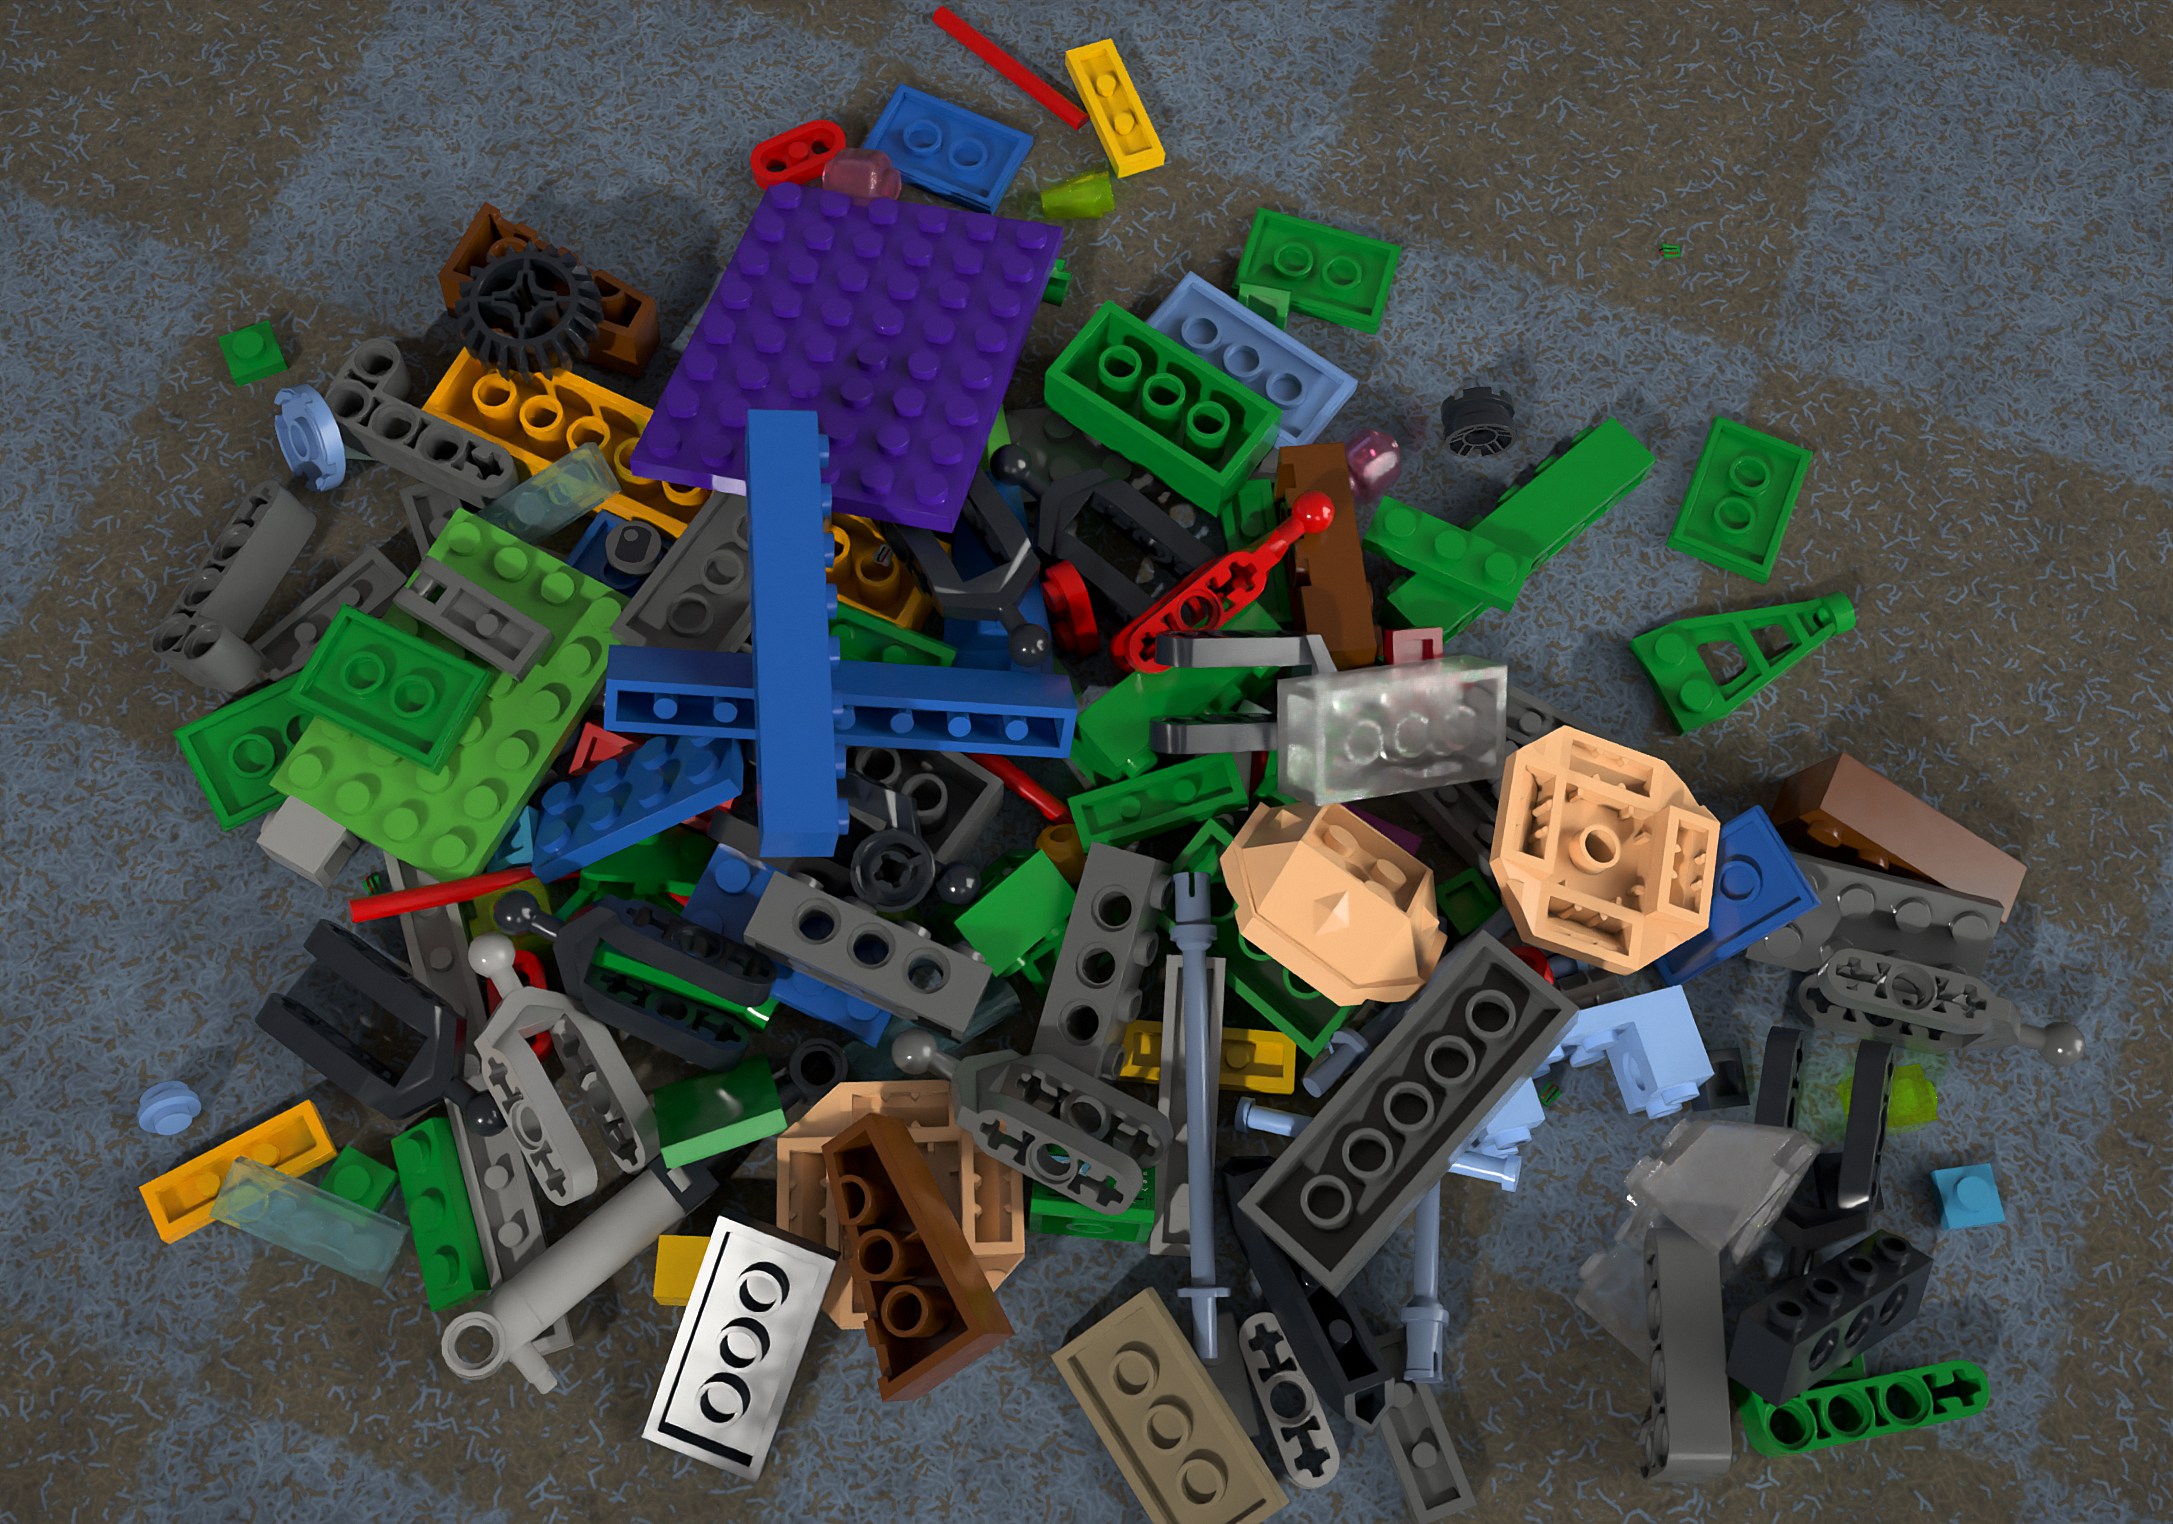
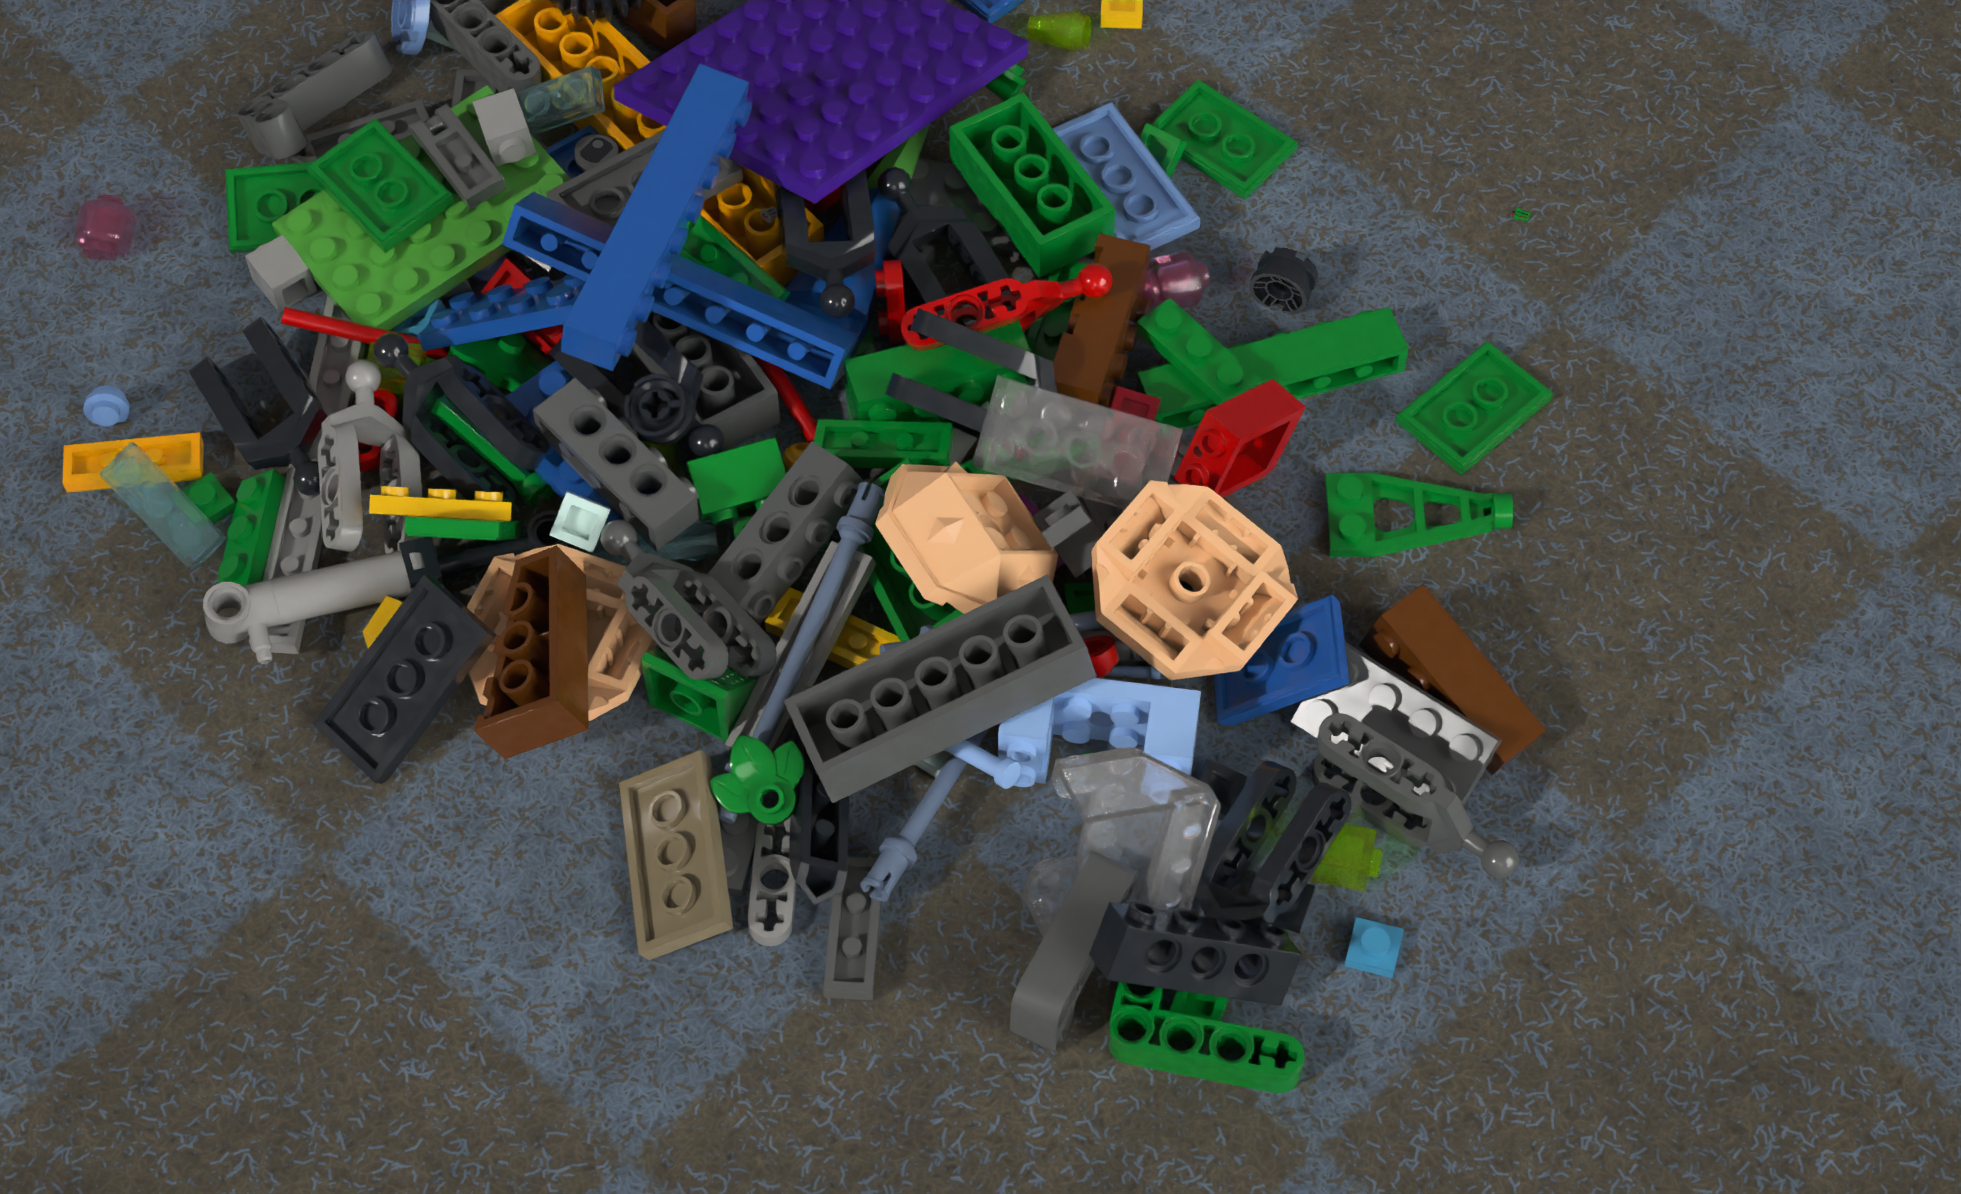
camera: 30 degrees right, 10 degrees down
(48, 864) = (104, 228): none -> clear pink head
(518, 562) = (504, 127): none -> light grey brick
(675, 1094) = (440, 504): none -> yellow plate
(855, 1046) = (579, 521): none -> light aqua plate
(1228, 1296) = (756, 773): none -> green plate
(1438, 838) = (1070, 531): none -> dark grey brick
(1552, 645) = (1241, 439): none -> red window

